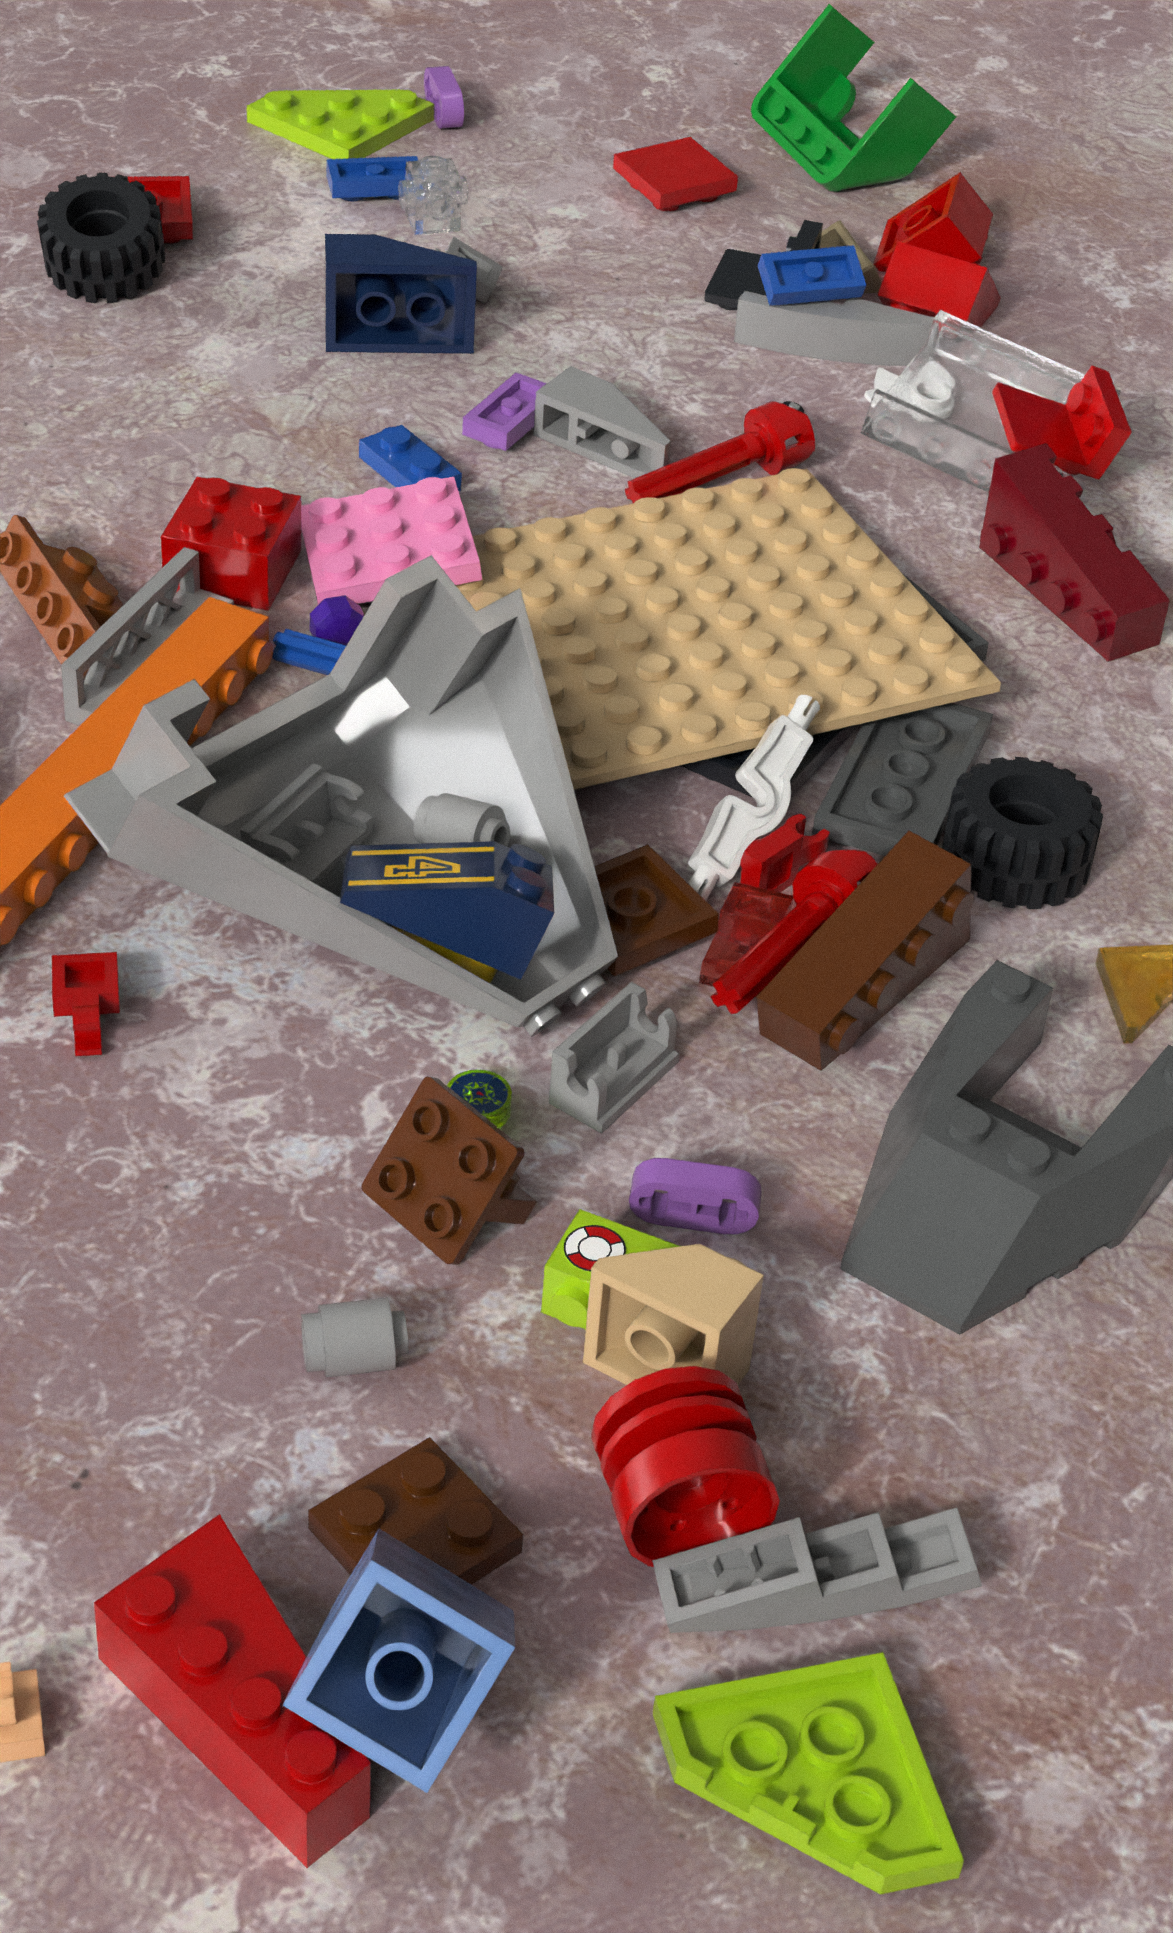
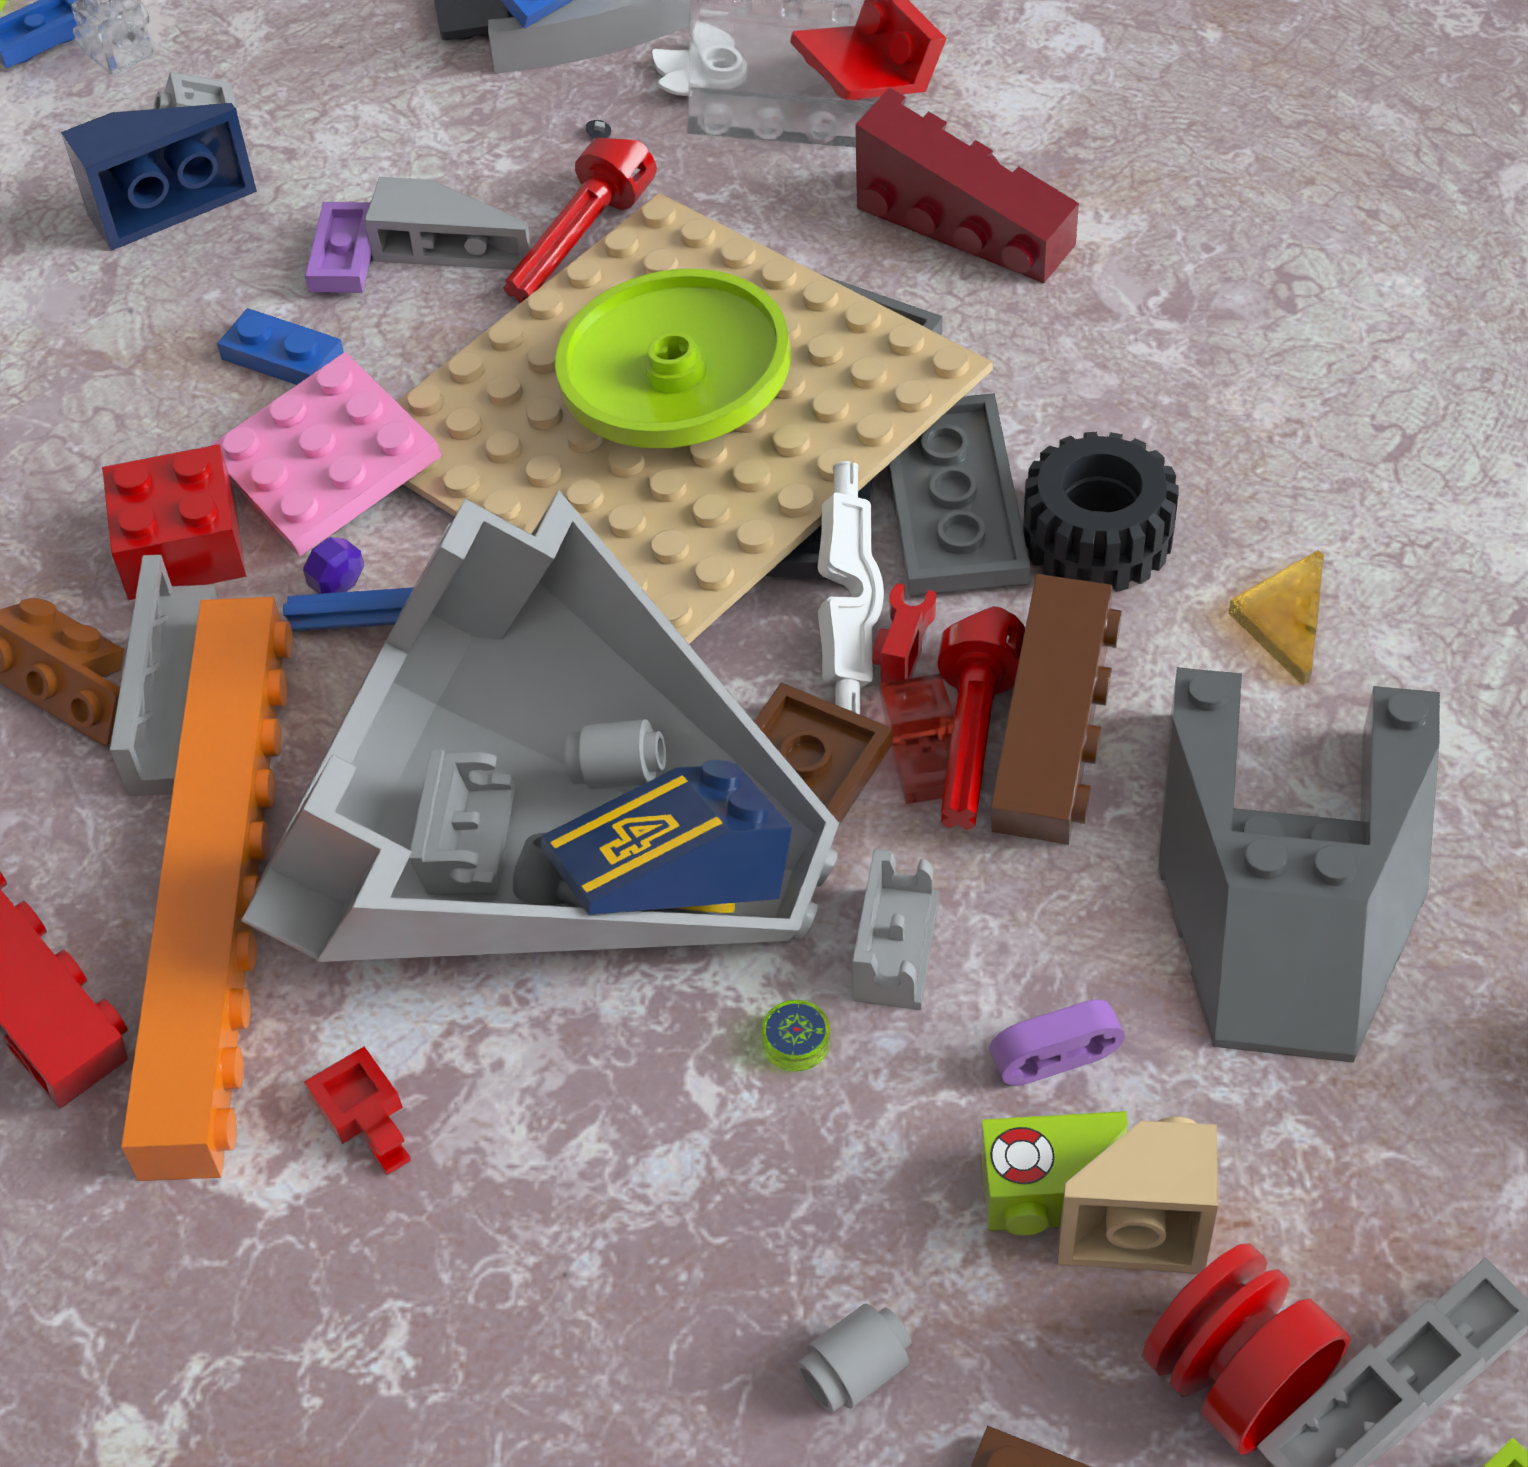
camera: 20 degrees left, 10 degrees up
(447, 1173) = (831, 1138): reddish brown bracket -> none
(714, 568) = (673, 358): none -> lime dish

